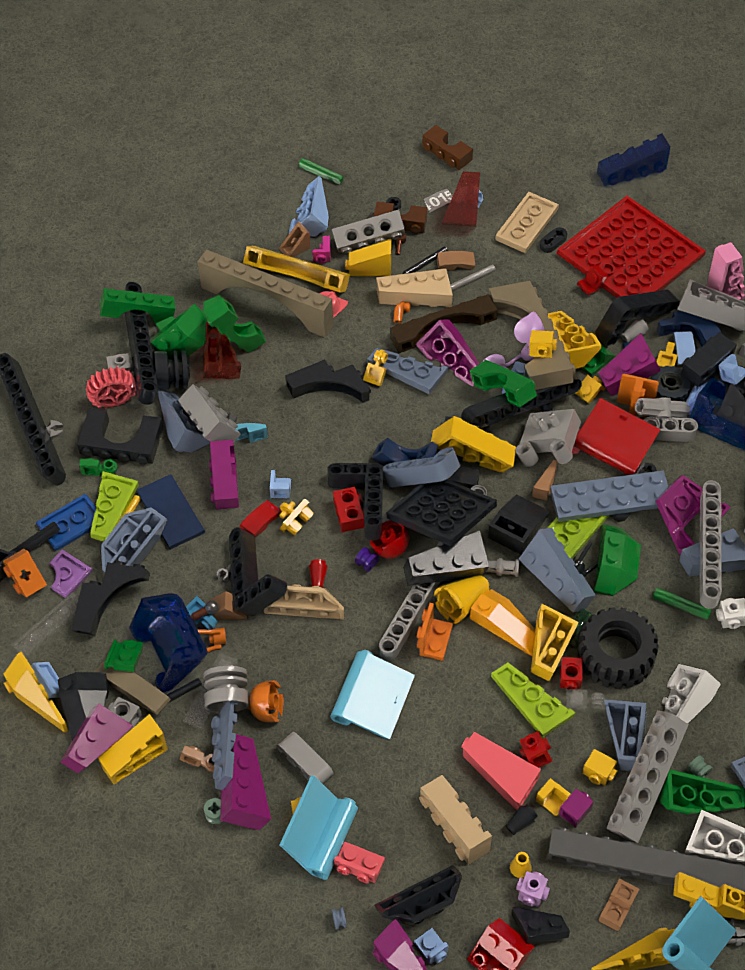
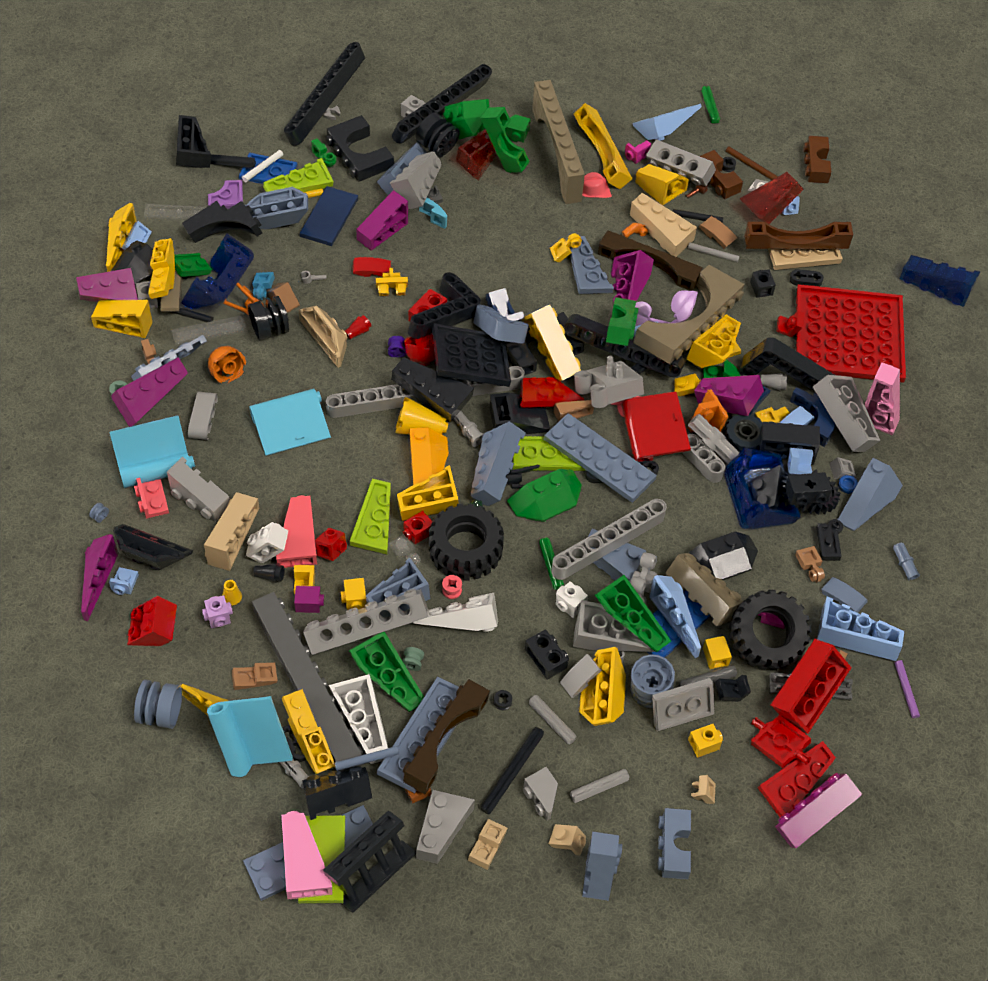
camera: 45 degrees right, 0 degrees up
(33, 579) = (205, 163): orange brick -> none
(65, 522) = (262, 166): none -> white bar
(111, 387) = (386, 111): coral gear -> none
(116, 302) = (457, 66): green arch -> none
(118, 679) = (163, 268): none -> yellow slope
(210, 608) = (267, 283): piece -> none
(225, 685) = (212, 328): light grey wheel -> none
(248, 592) = (304, 295): black beam -> none
(250, 633) = (266, 318): none -> black wheel
(279, 486) = (408, 259): light blue panel -> none
(296, 241) = (628, 131): medium nougat slope -> none
(323, 378) = (526, 224): black arch -> none
(391, 819) = (195, 491): none -> light grey wedge
(410, 190) = (750, 163): none -> reddish brown bar
(433, 635) = (370, 422): orange bracket -> none
(497, 798) = (267, 542): none -> white brick
(500, 231) = (832, 236): none -> reddish brown arch
(515, 486) = (545, 392): none -> red wing
(535, 269) = (762, 283): none -> black brick
(539, 926) = (193, 634): black wing -> none
(542, 343) = (675, 317): yellow brick -> none
(646, 694) = (451, 592): none -> coral wheel
(679, 506) = (630, 497): magenta wing -> none

